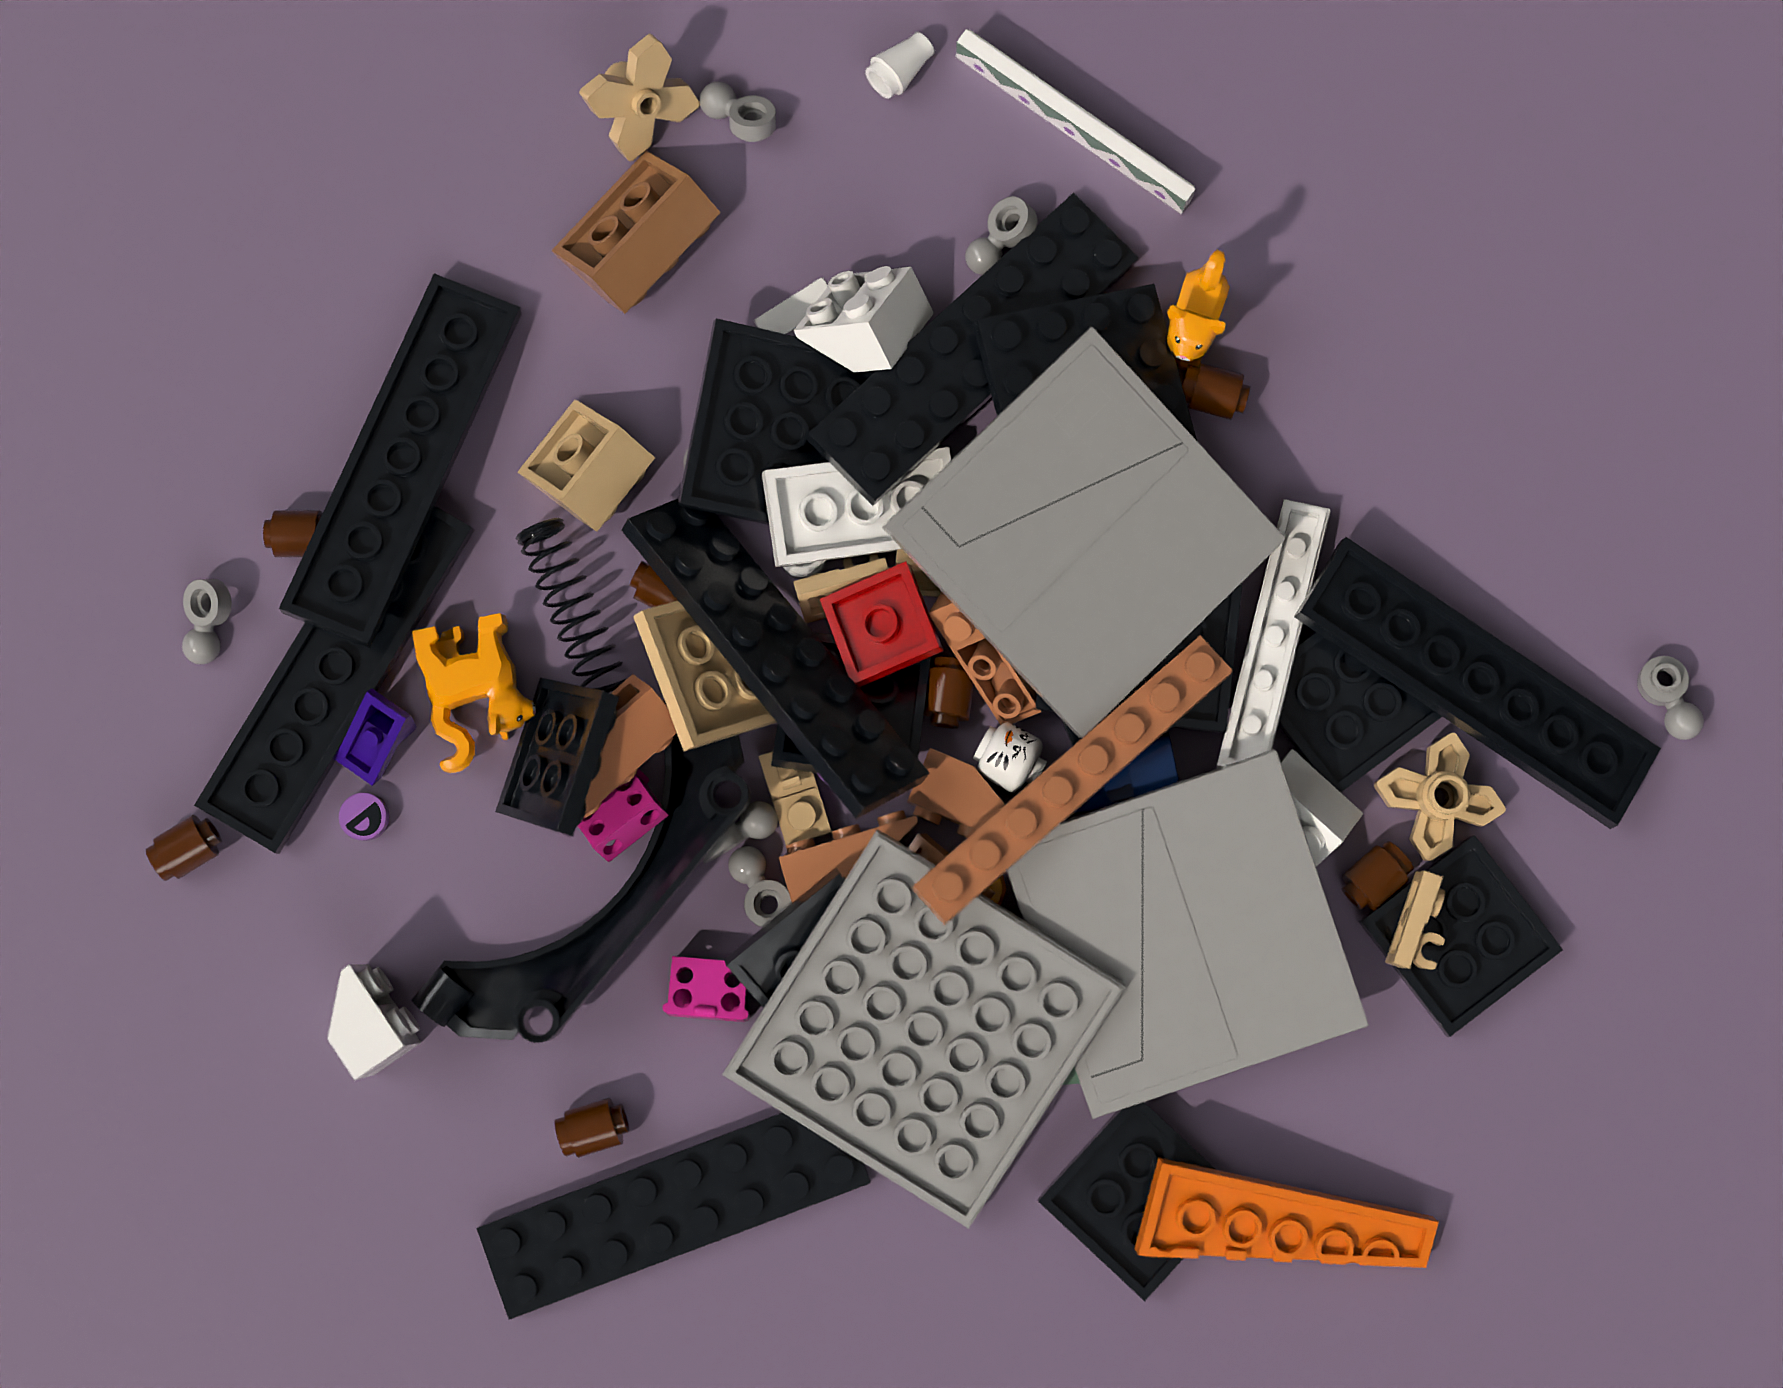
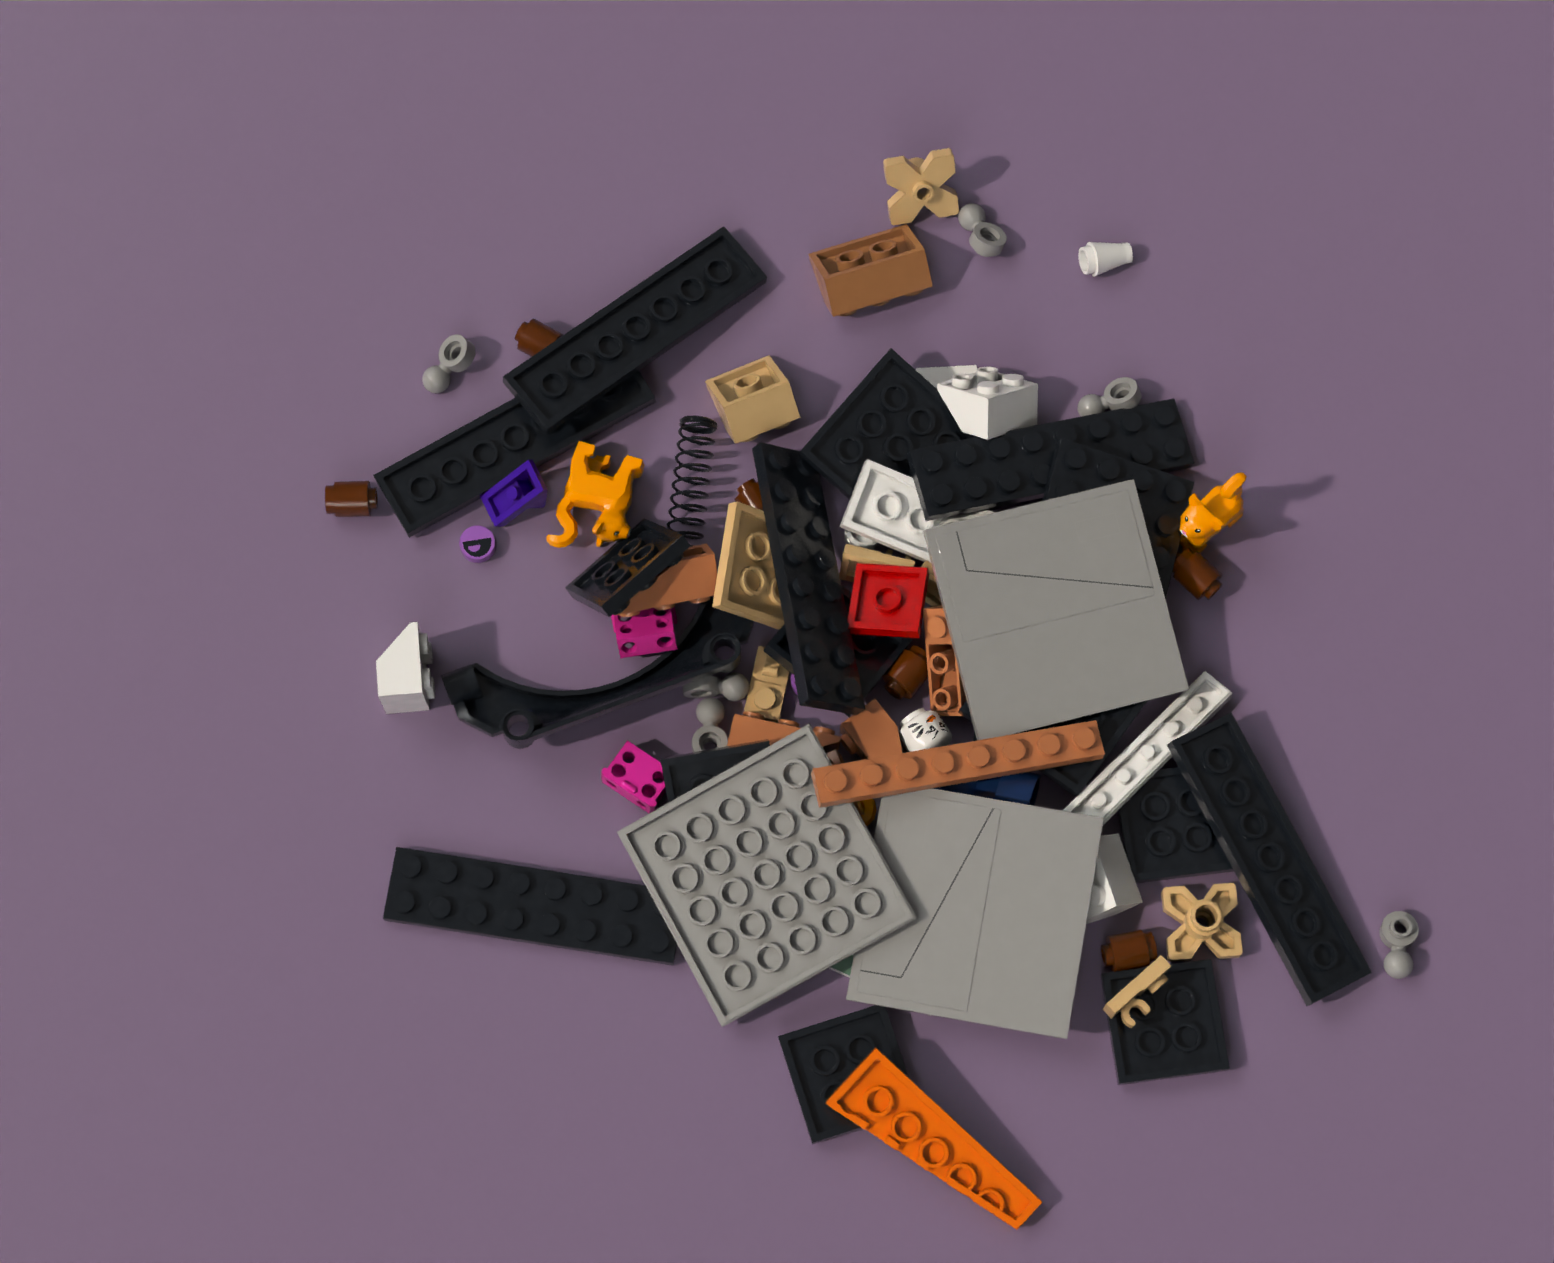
camera: 25 degrees right, 10 degrees down
(591, 1128) = (509, 823): reddish brown brick -> none
(1074, 121) = (1200, 353): white tile -> none

